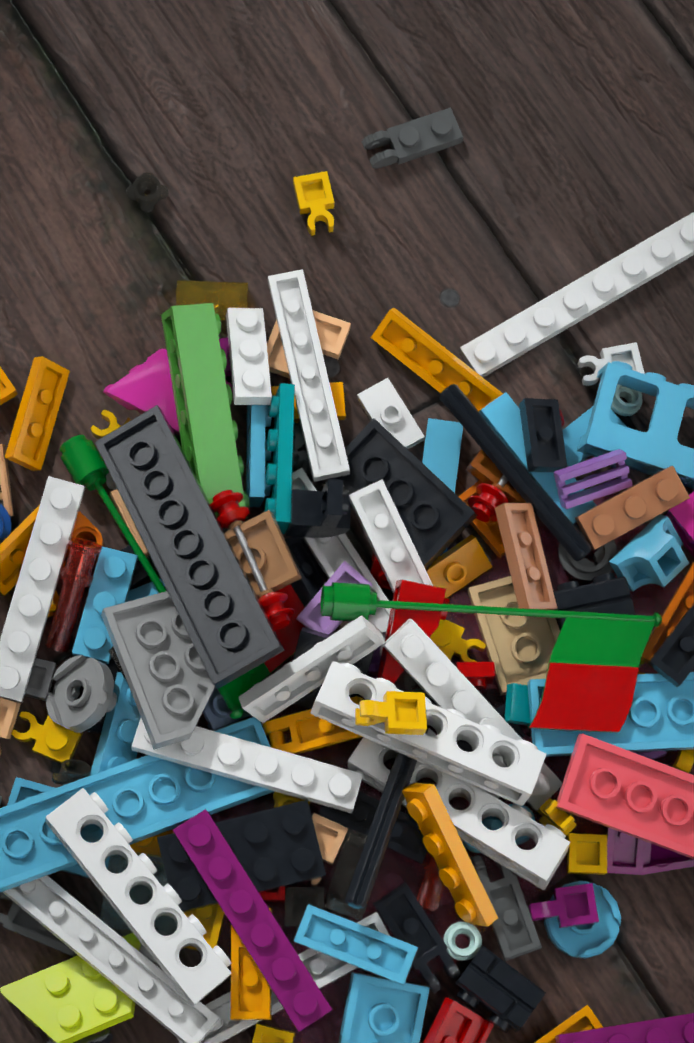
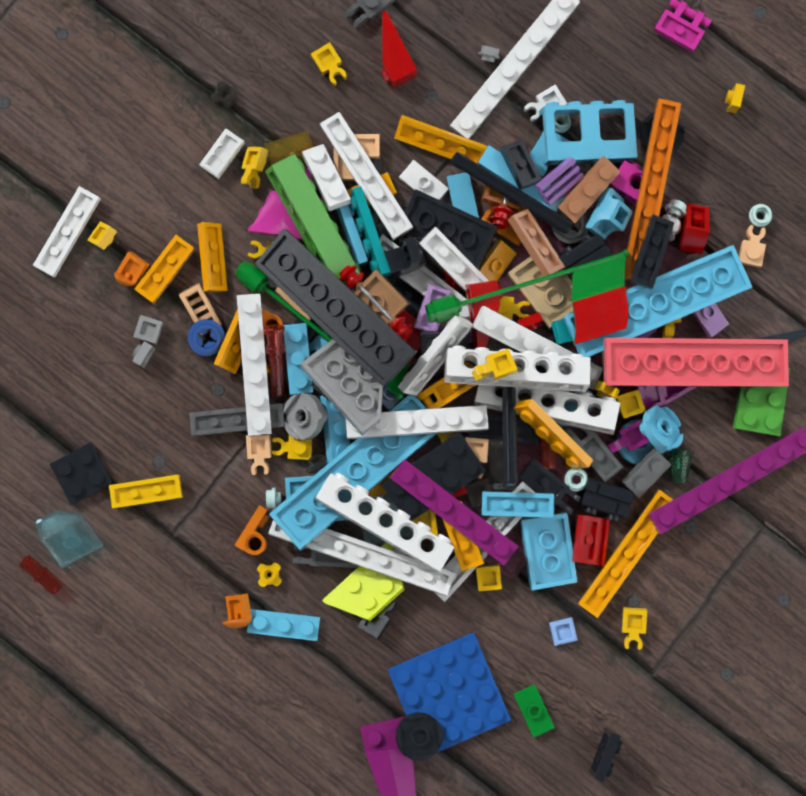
camera: 15 degrees left, 10 degrees up
(110, 273) = (222, 153): none -> white plate
(150, 301) = (253, 163): none -> yellow plate
(413, 229) = (396, 61): none -> red slope
(554, 267) = (489, 53): none -> light grey plate
(576, 970) = (646, 472): none -> dark grey plate
(622, 927) = (666, 438): none -> medium azure plate
(634, 977) = (680, 464): none -> clear green cone

